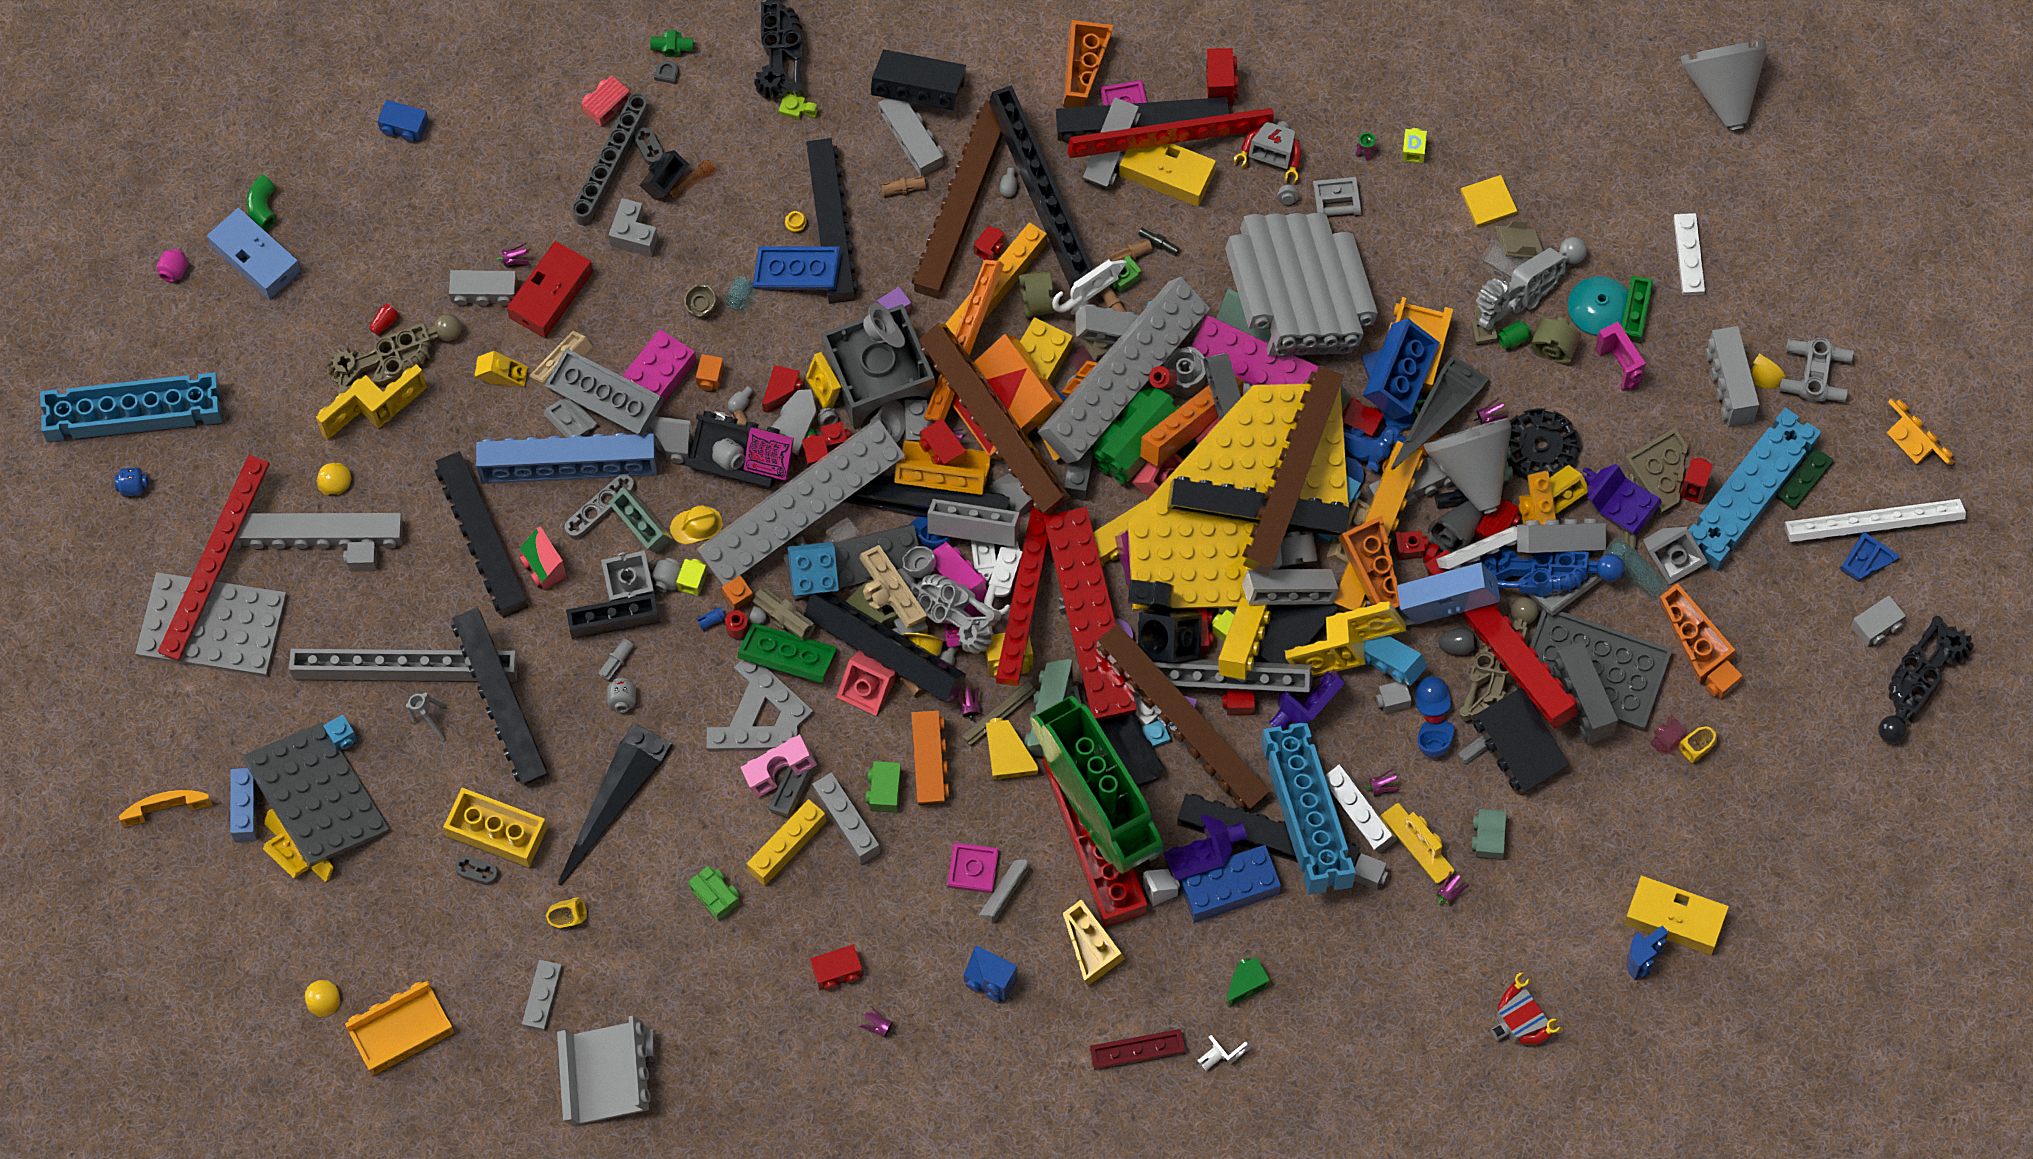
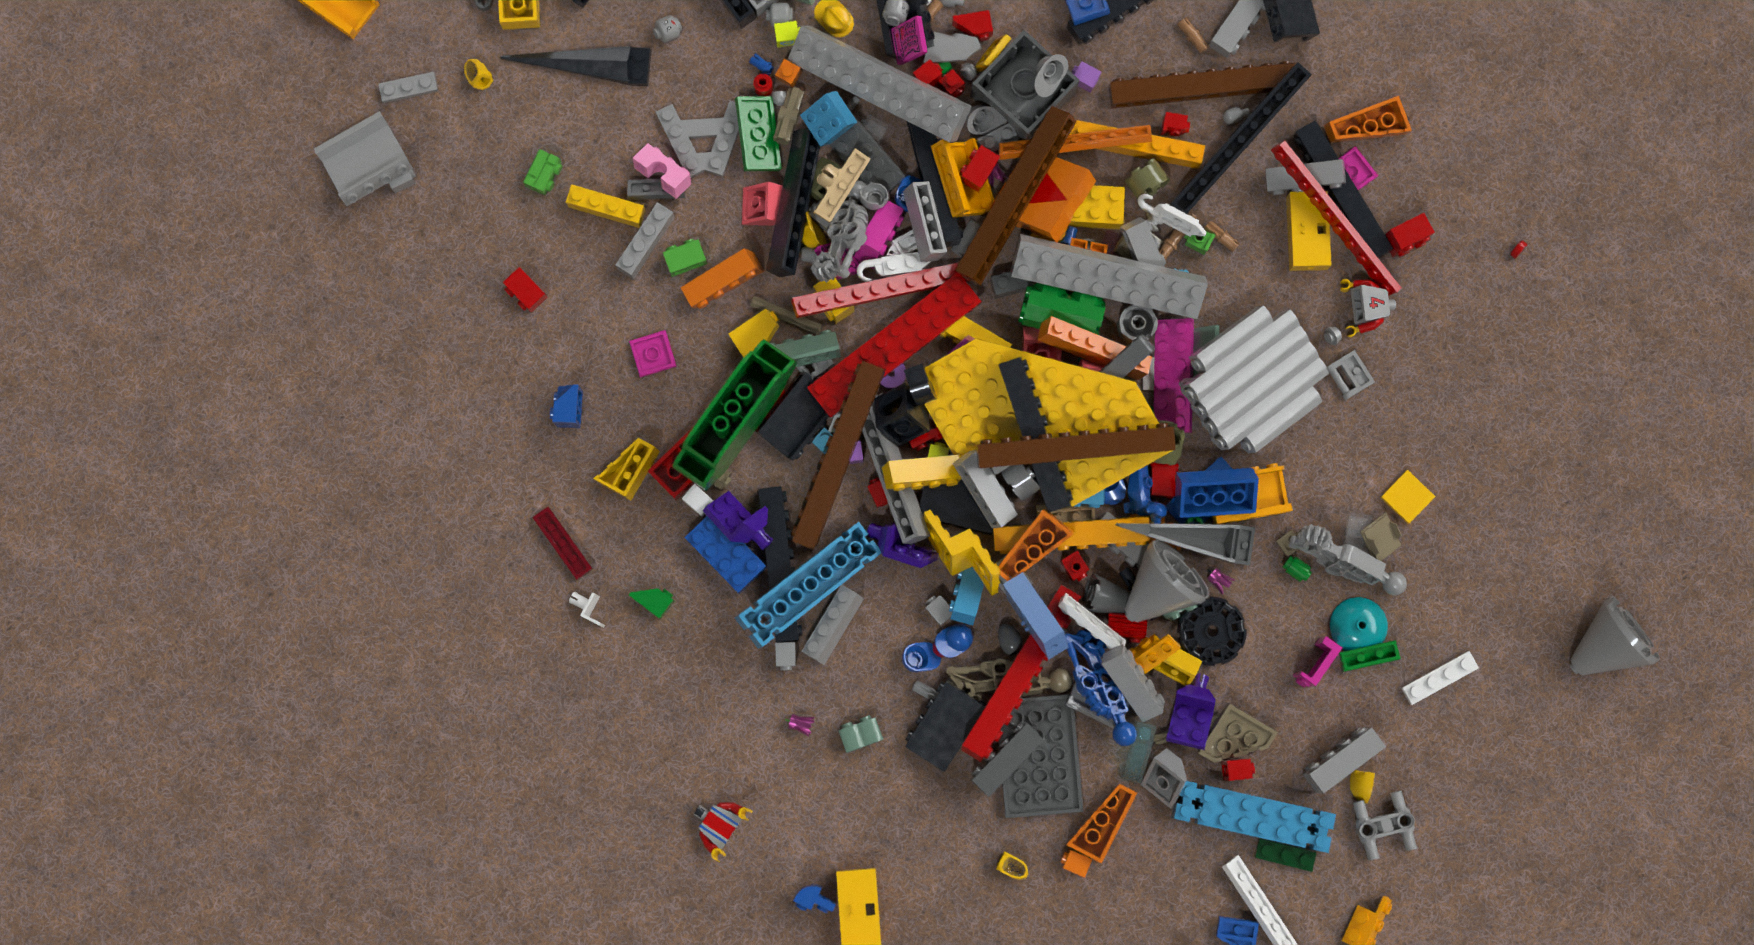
camera: 60 degrees right, 15 degrees up
(616, 659) = (695, 11): light grey axle -> none
(883, 1024) = (492, 344): flat silver piece -> none
(970, 706) = (779, 290): flat silver piece -> none
(1004, 890) = (644, 385): light grey slope -> none
(1159, 241) = (1243, 253): pearl dark grey bar -> none
(1163, 378) = (1116, 309): red brick -> none
(1366, 143) = (1408, 376): piece -> none
(1376, 783) = (864, 633): flat silver piece -> none
(1414, 145) = (1426, 415): neon yellow brick -> none
(1419, 841) = (825, 686): yellow bracket -> none
(1430, 554) = (1075, 585): red tile -> none
(1555, 339) = (1306, 603): olive brick -> none
(1668, 735) = (1007, 839): clear pink brick -> none

